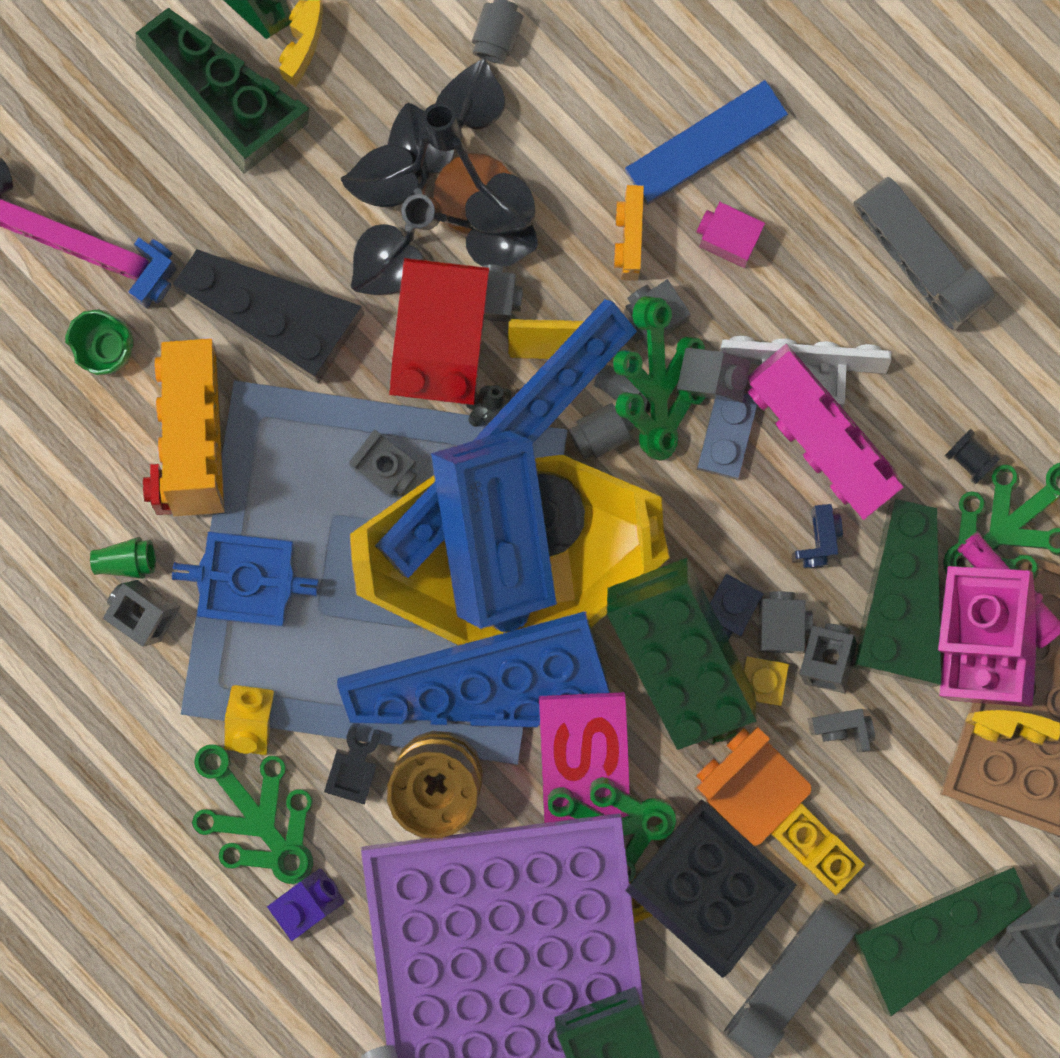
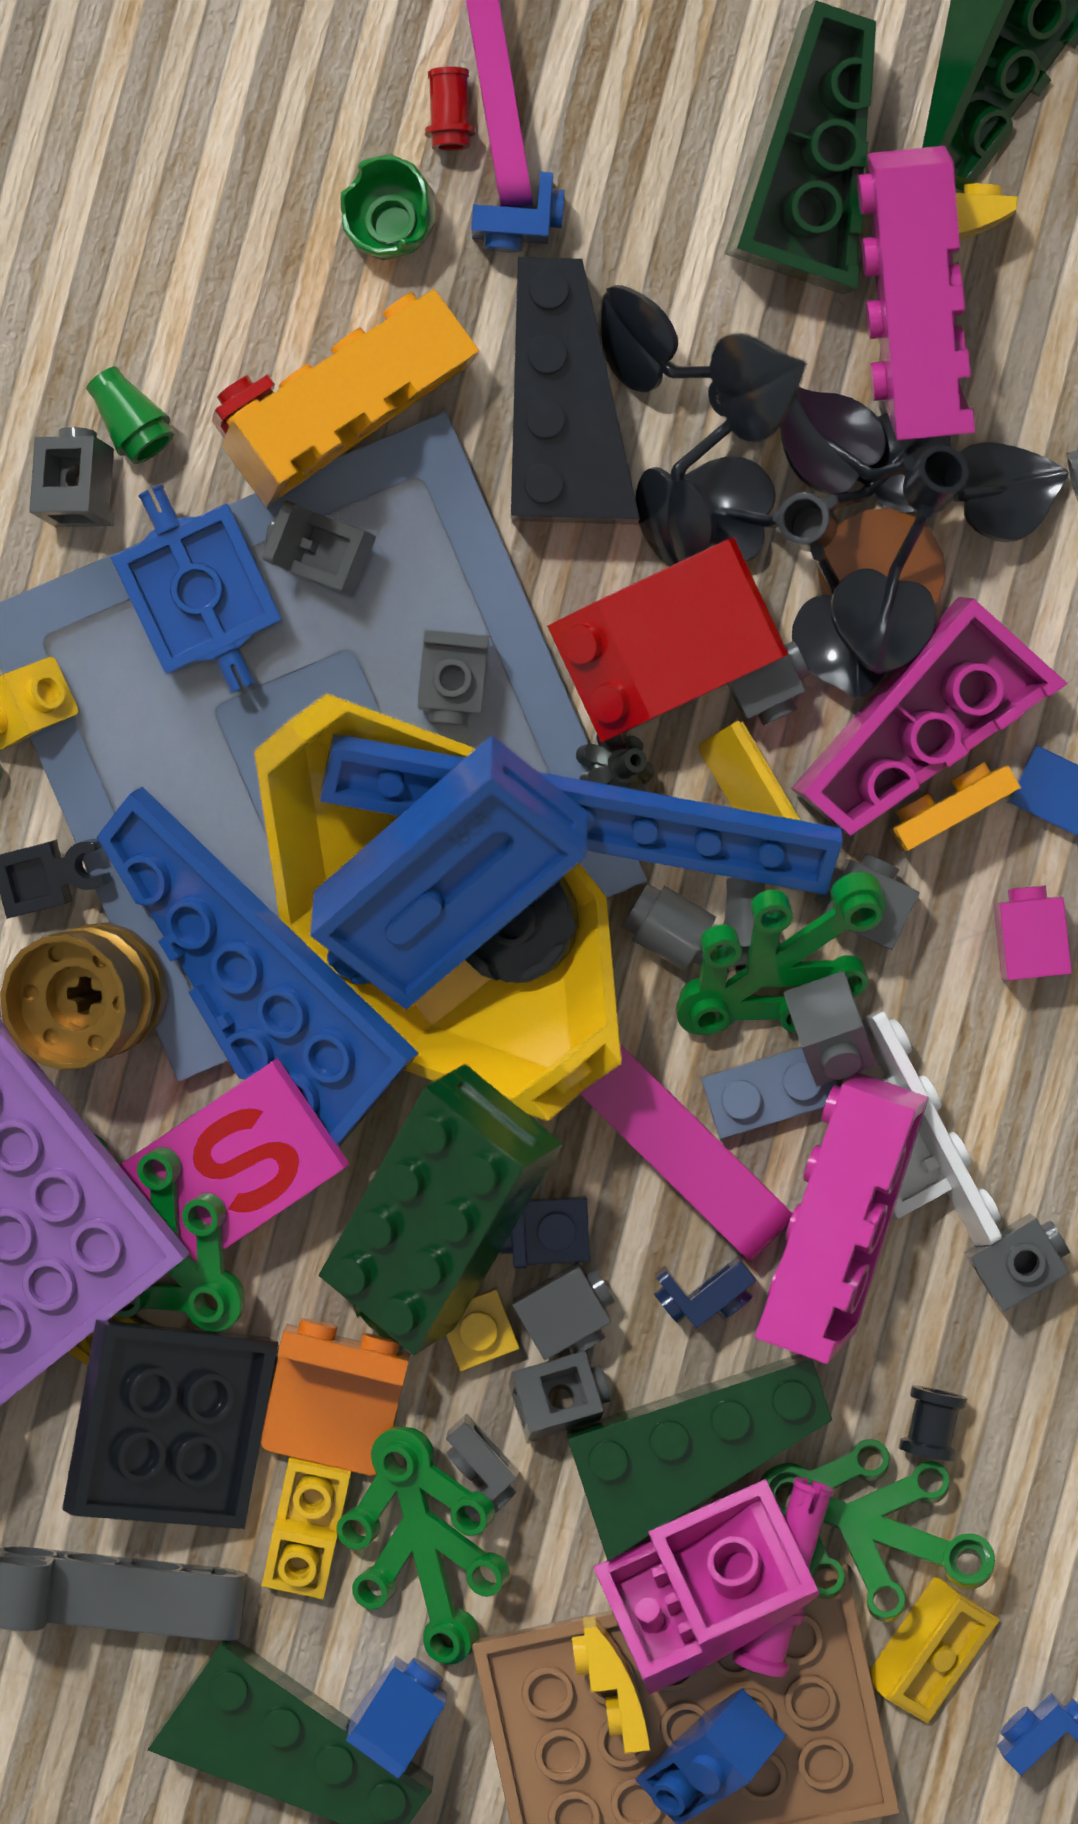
camera: 70 degrees right, 5 degrees up
(75, 280) = (449, 109): none -> red pin
(265, 496) = (317, 548): none -> dark grey bracket
(328, 199) = (749, 387): none -> black plant
(331, 76) = (916, 292): none -> dark pink wedge
(571, 216) = (927, 716): none -> dark pink wedge
(738, 500) = (688, 1156): none -> dark pink beam
(864, 782) = (425, 1537): none -> green plant
(911, 352) = (1021, 1261): none -> dark grey brick
(956, 860) = (397, 1714): none -> blue slope

